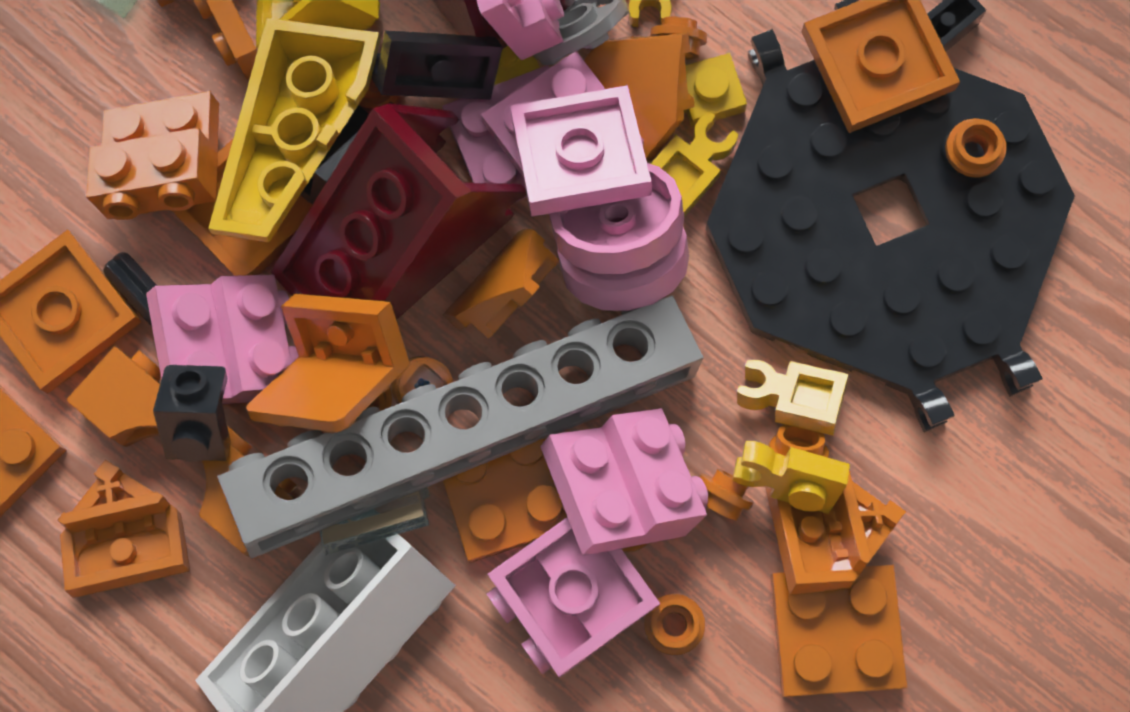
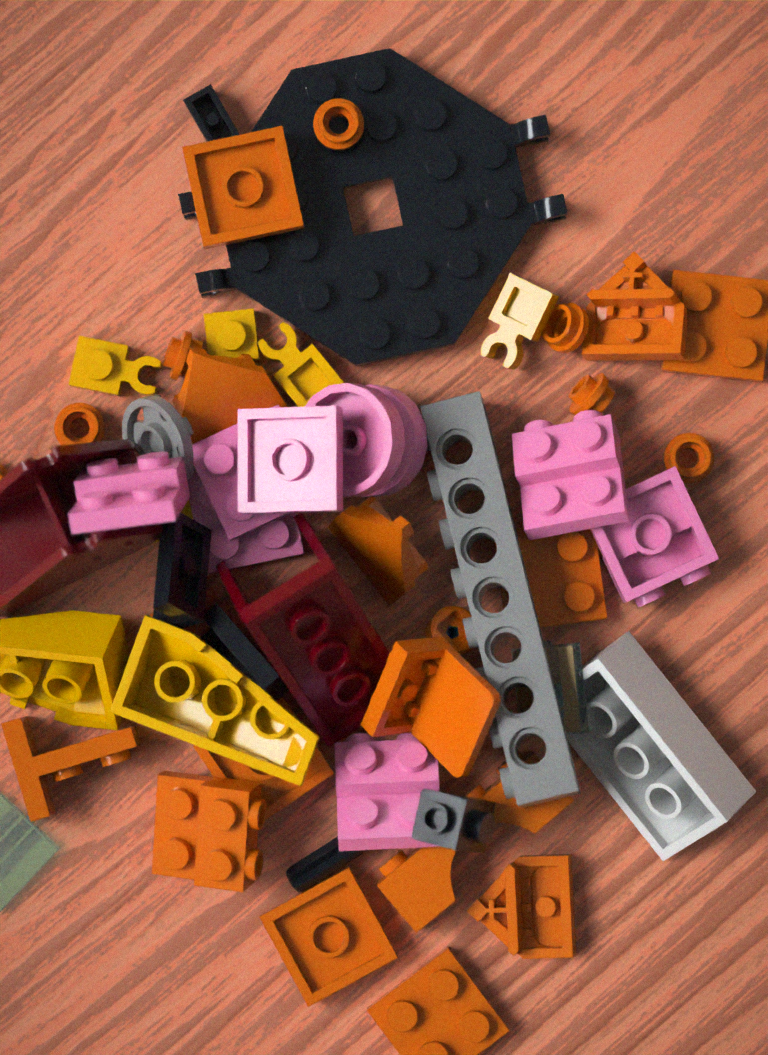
camera: 80 degrees left, 10 degrees up
(799, 478) = (593, 333): yellow plate -> none

